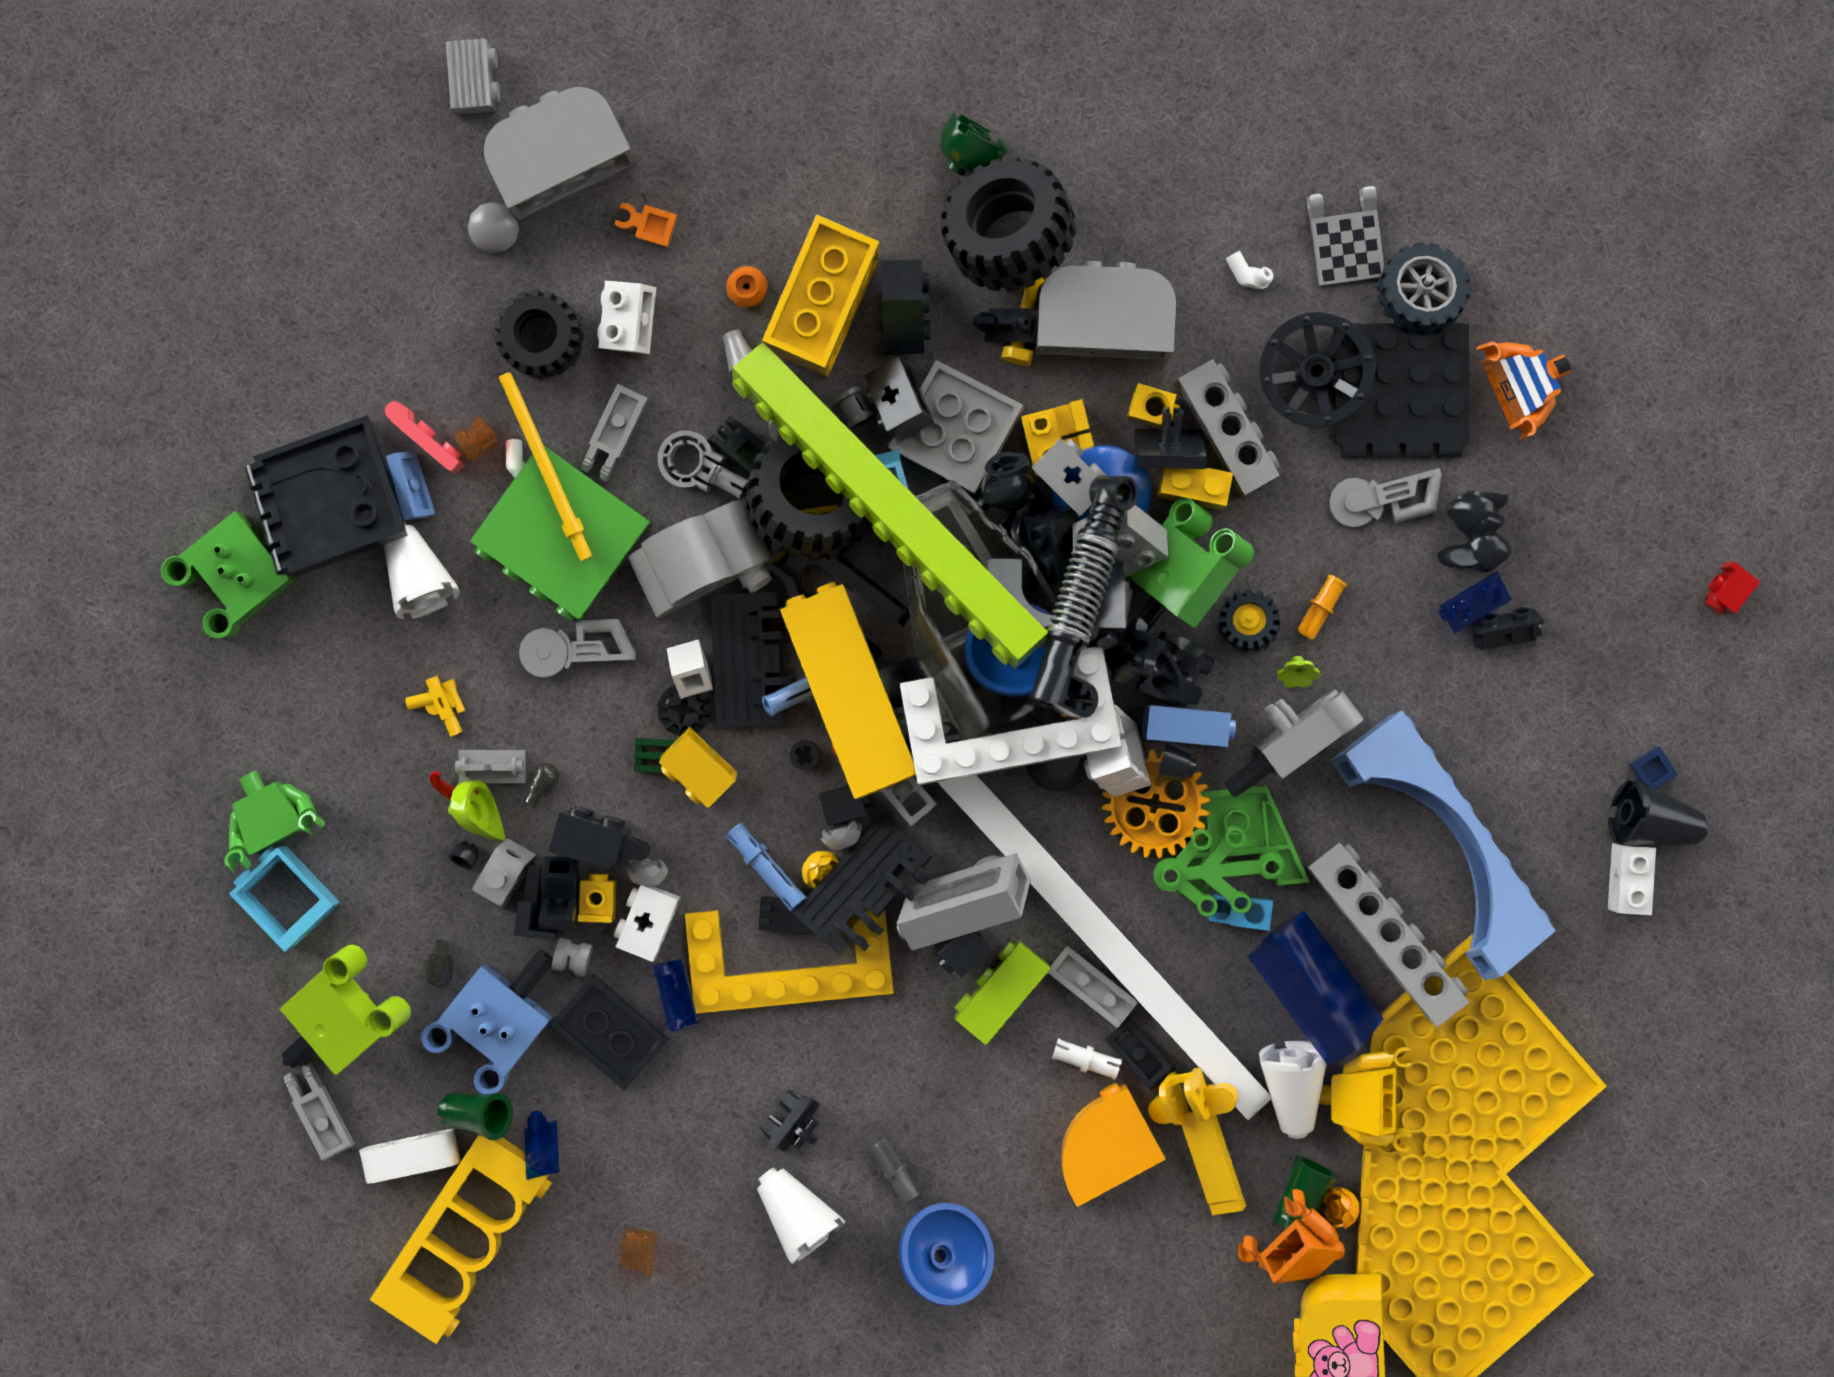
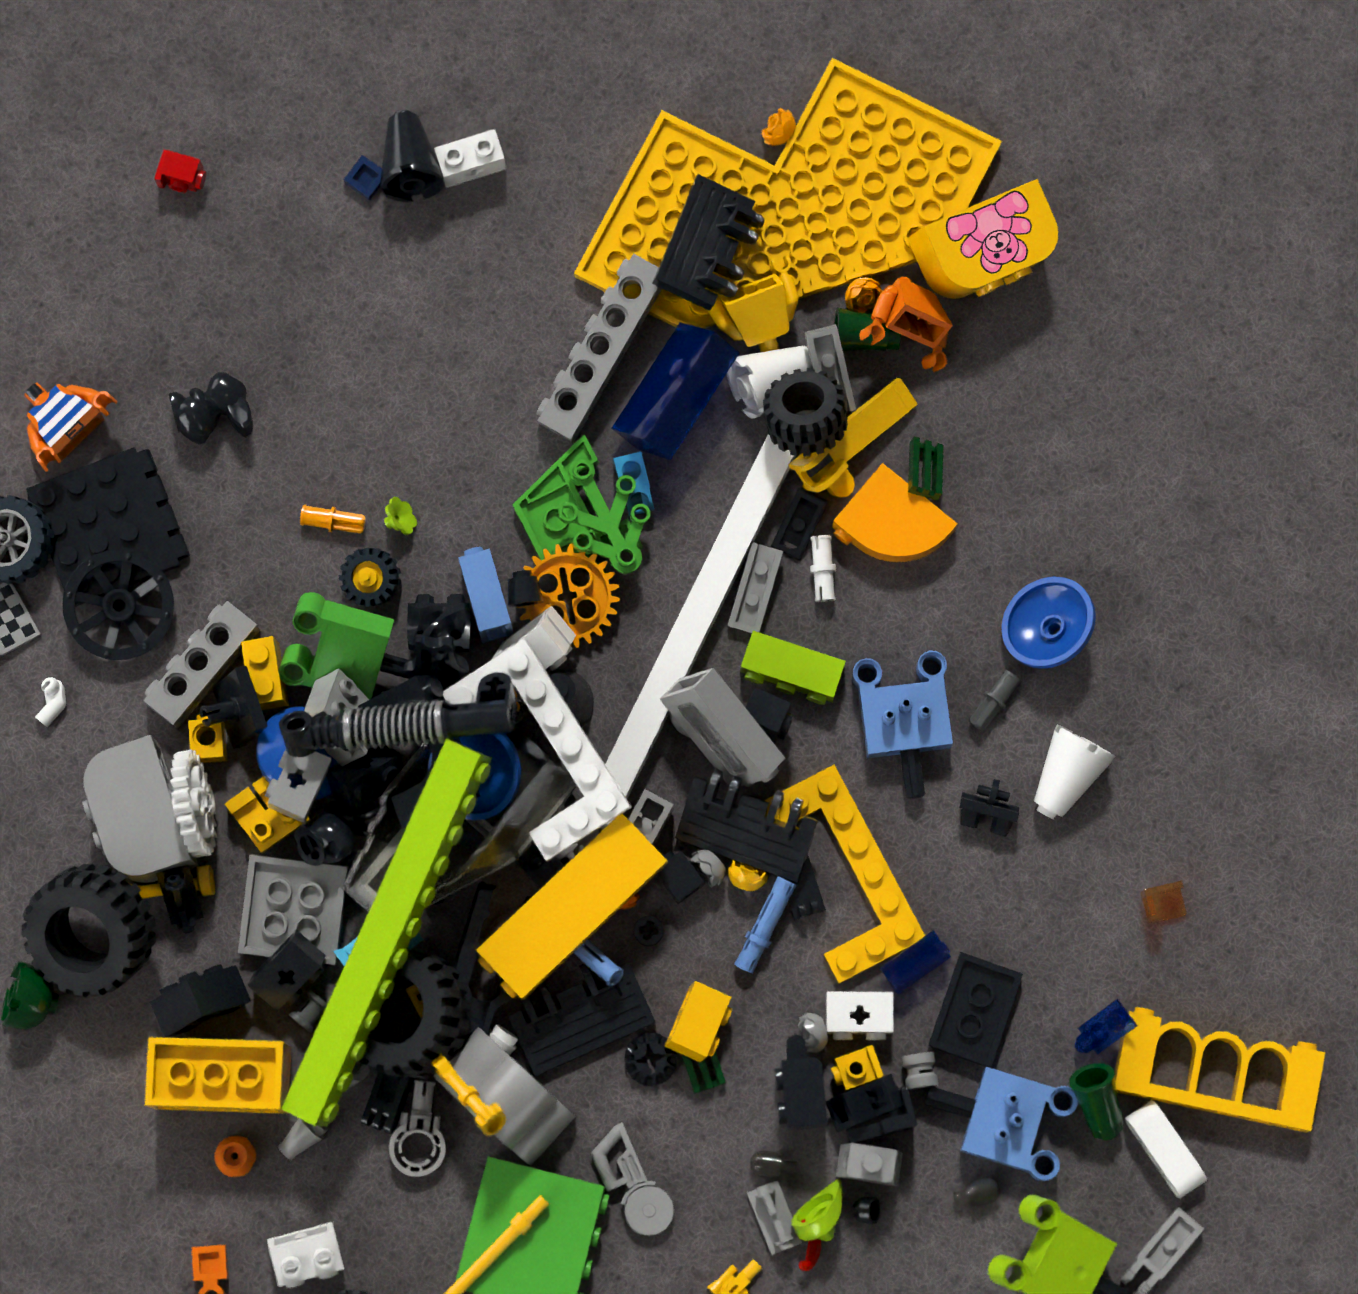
camera: 115 degrees left, 10 degrees down
(615, 429) = (413, 1226): light grey hinge -> none
(670, 534) = (488, 1118): none -> yellow piece
(689, 668) = (610, 1066): white brick -> none
(910, 1079) = (905, 718): none -> medium blue piece
(1091, 368) = (193, 803): none -> white gear
(1140, 1202) = (937, 468): none -> dark green tile
(1263, 1113) = (810, 431): none -> black tyre
(1277, 1145) = (828, 356): none -> light grey hinge
(1296, 738) = (457, 492): light grey piece -> none
(1358, 502) = (224, 524): light grey piece -> none
(1451, 1071) = (701, 243): none -> black hinge
(1475, 602) = (276, 386): clear blue hinge -> none
(1506, 914) = (544, 252): medium blue arch -> none
(1521, 624) = (280, 339): black hinge -> none
(1542, 1193) = (779, 128): none -> light orange plate

